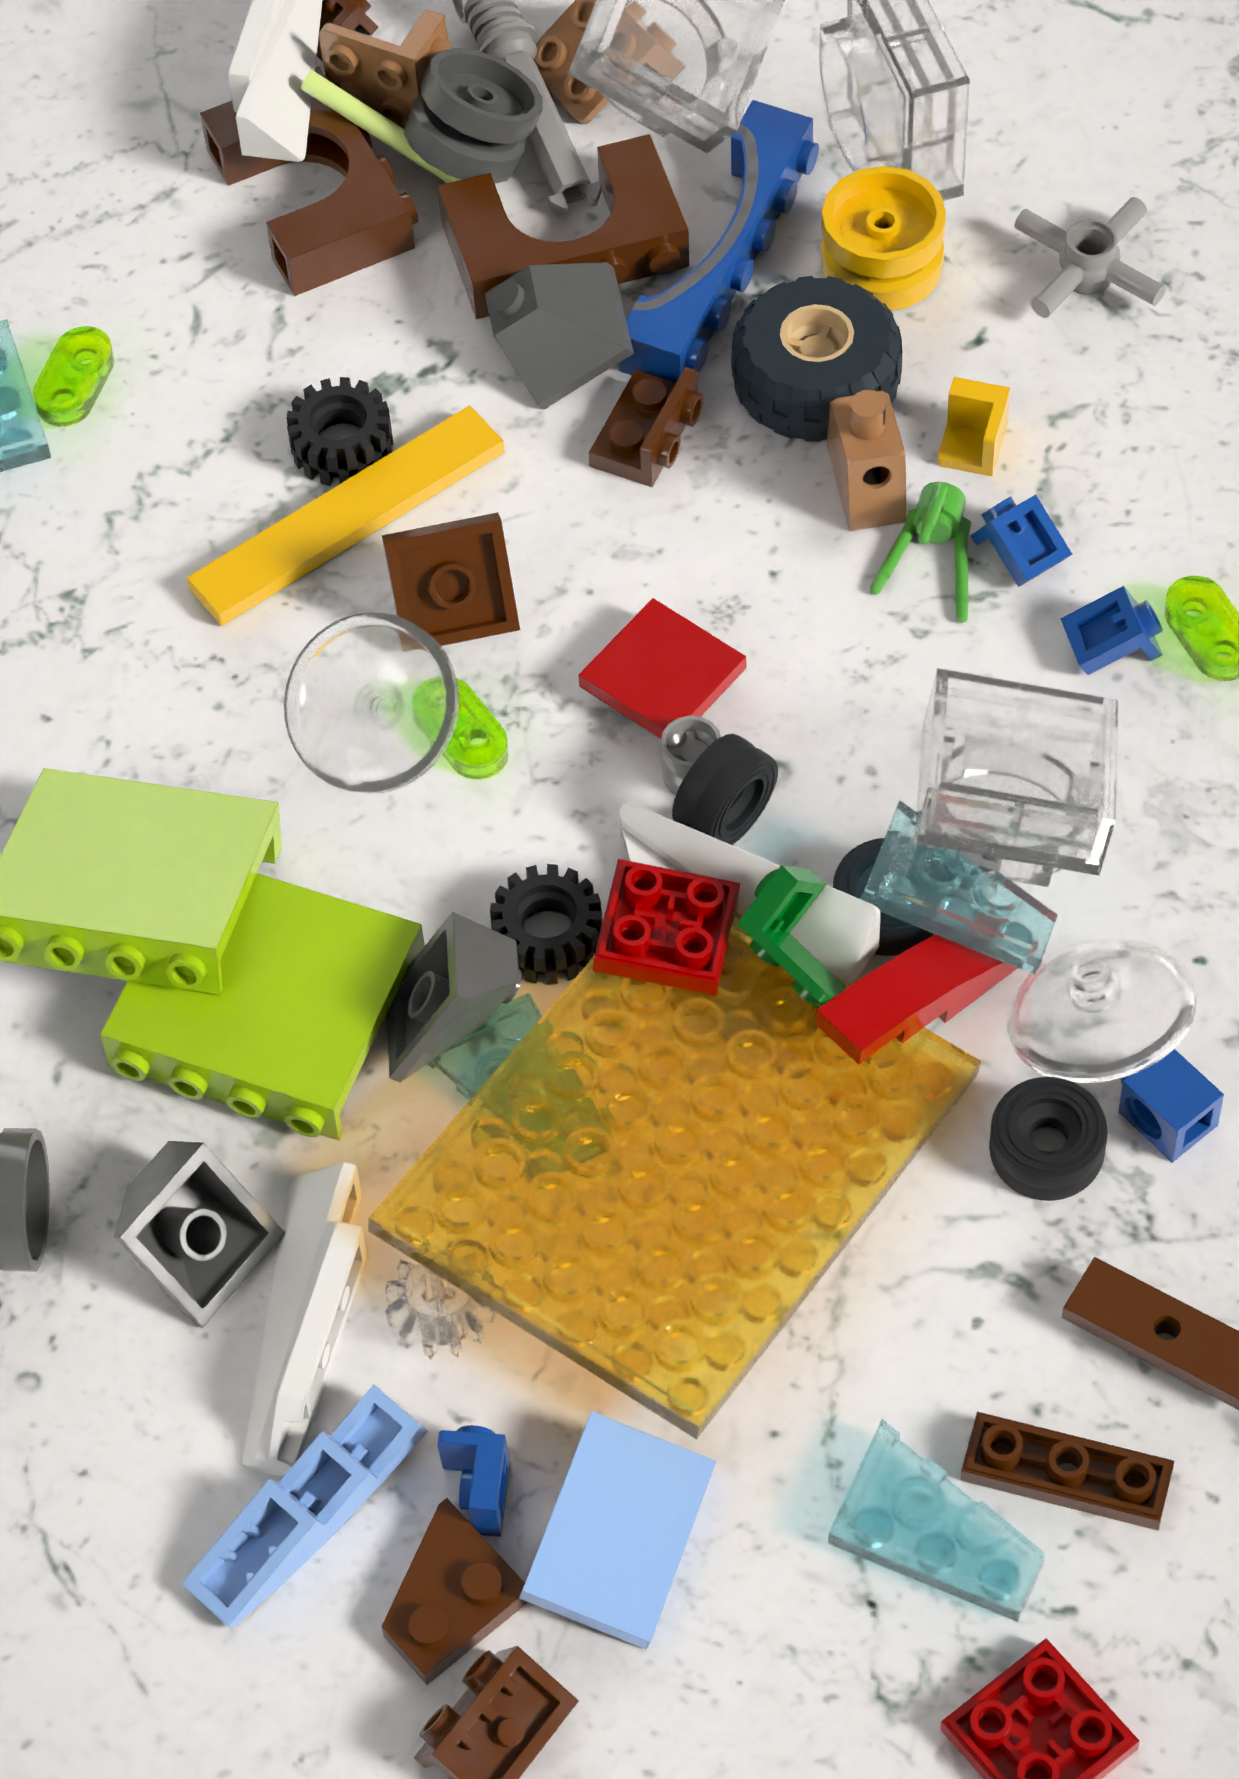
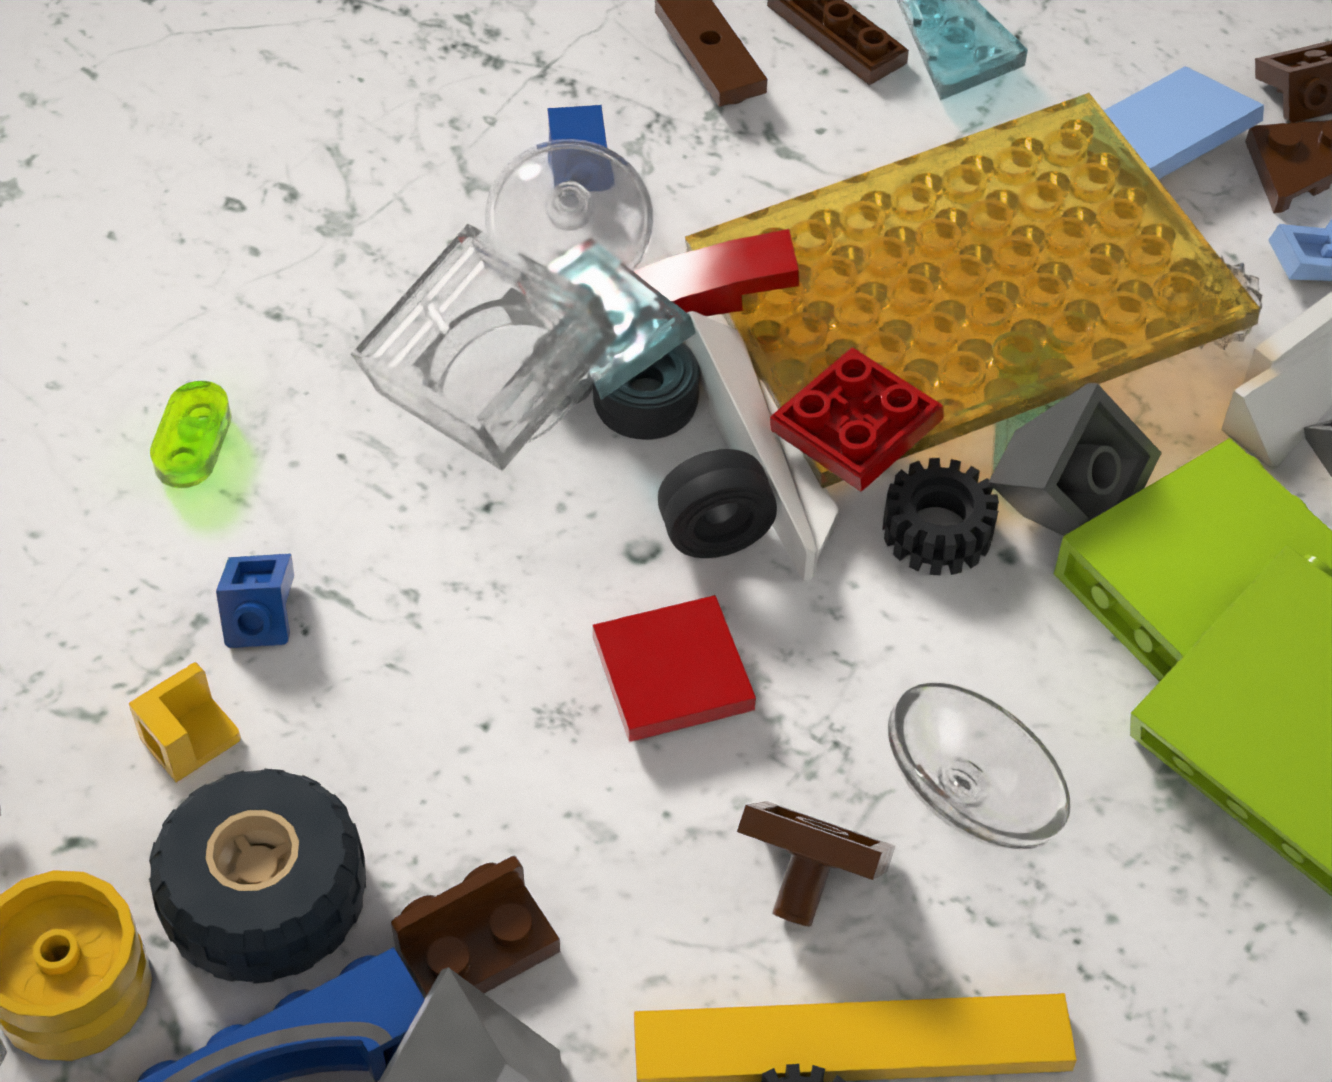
camera: 150 degrees left, 5 degrees down
(473, 722) = (872, 742): clear neon green plate -> none
(484, 1475) = (1245, 193): blue bracket -> none
(682, 745) = (713, 566): light grey wheel -> none
(779, 905) = (770, 342): green bracket -> none
(864, 437) = (317, 724): medium nougat torso -> none
(935, 521) = (303, 658): bright green plant -> none
(1053, 1104) = (690, 155): black tyre -> none
(1112, 630) = (270, 471): blue bracket -> none

